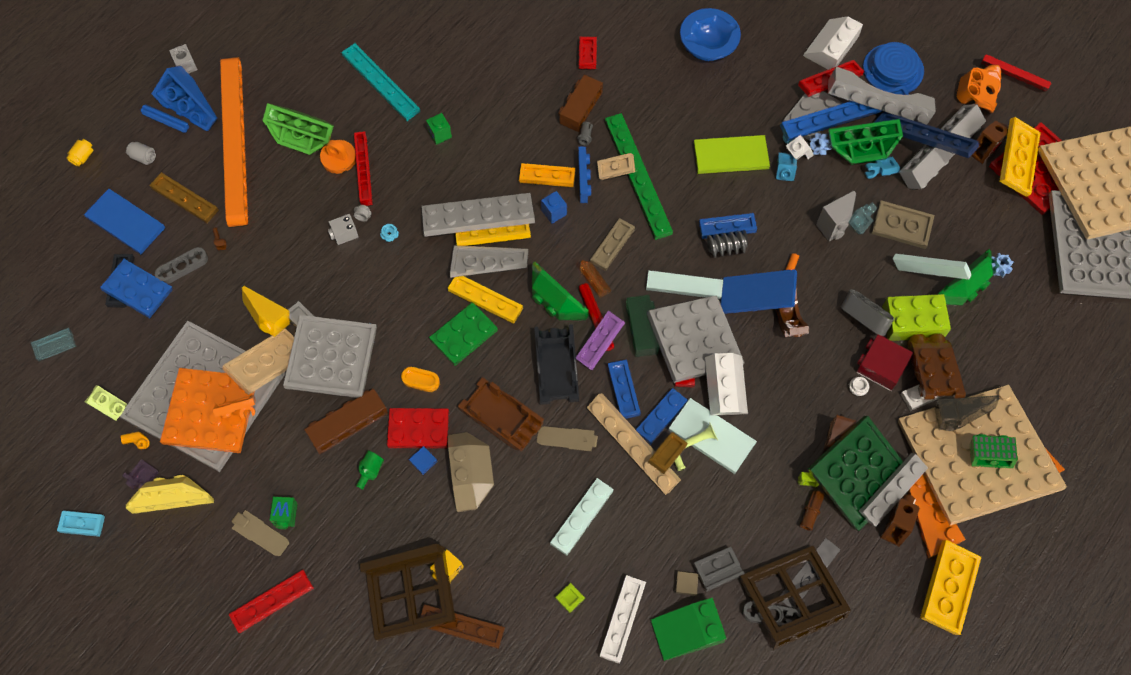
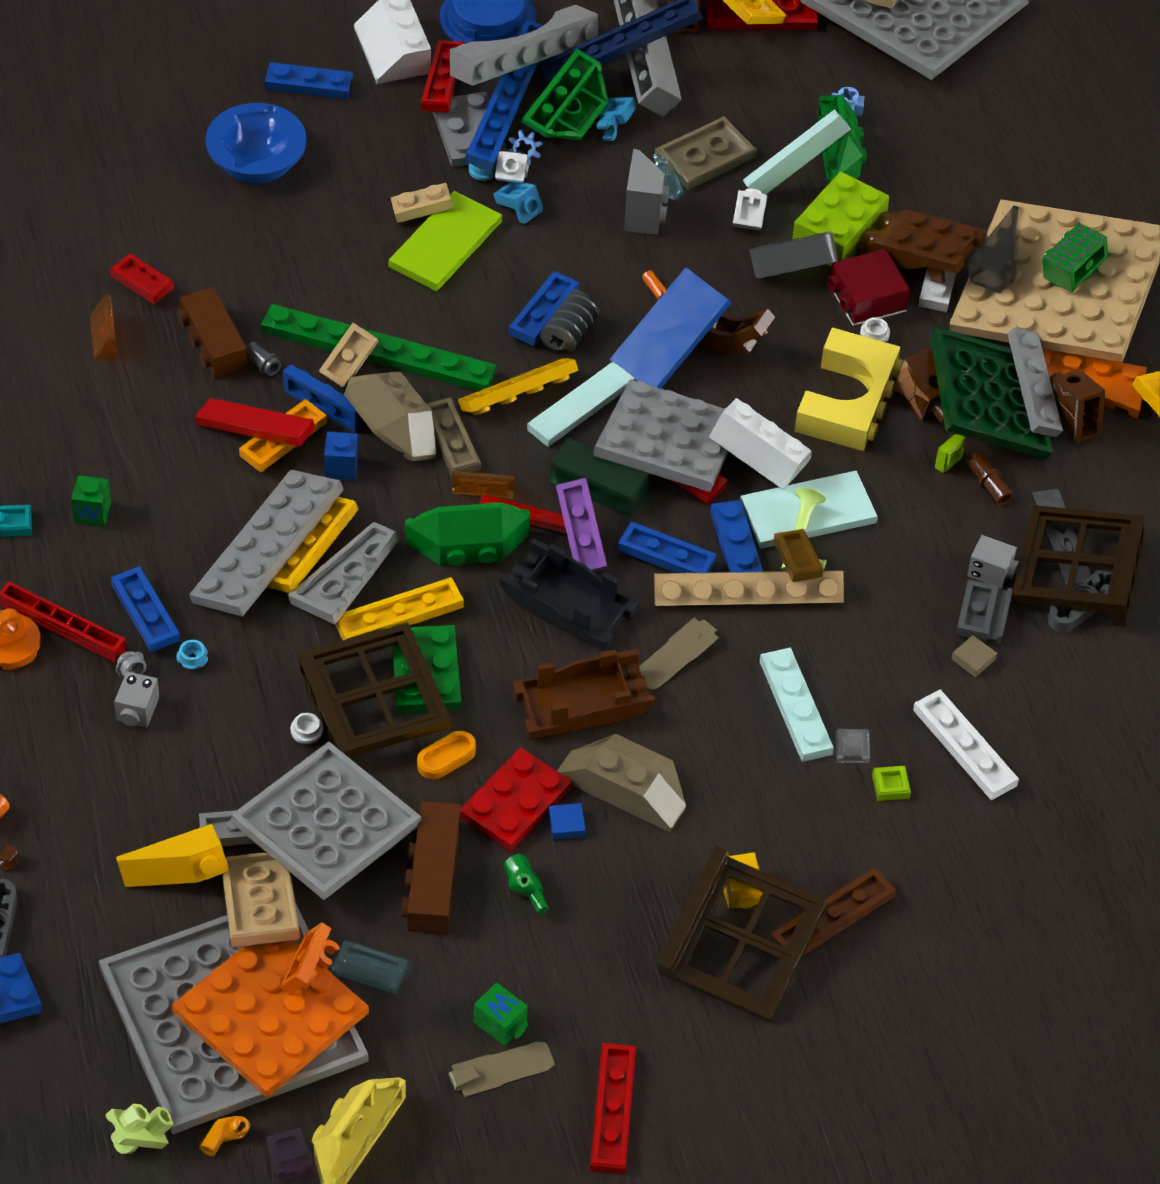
camera: 55 degrees left, 15 degrees down
(273, 434) = (370, 966): none -> clear light blue tile
(386, 309) = (306, 728): none -> white plate
(398, 195) = (145, 609): none -> blue plate
(402, 308) = (329, 704): none -> dark brown window
(541, 158) = (255, 422): none -> red tile
(545, 62) = (103, 330): none -> clear orange slope
(578, 562) = (852, 746): none -> clear plate
(596, 208) = (394, 413): none -> dark tan wedge
(665, 248) = (507, 390): none -> yellow plate
(688, 629) = (1034, 686): green slope -> none
(742, 127) = (421, 202): none -> tan plate
(755, 551) = (993, 561): none -> light grey brick
(774, 28) = (308, 80): none -> blue plate
(788, 418) = (851, 421): none -> light yellow arch
(882, 270) = (750, 209): none -> white bracket

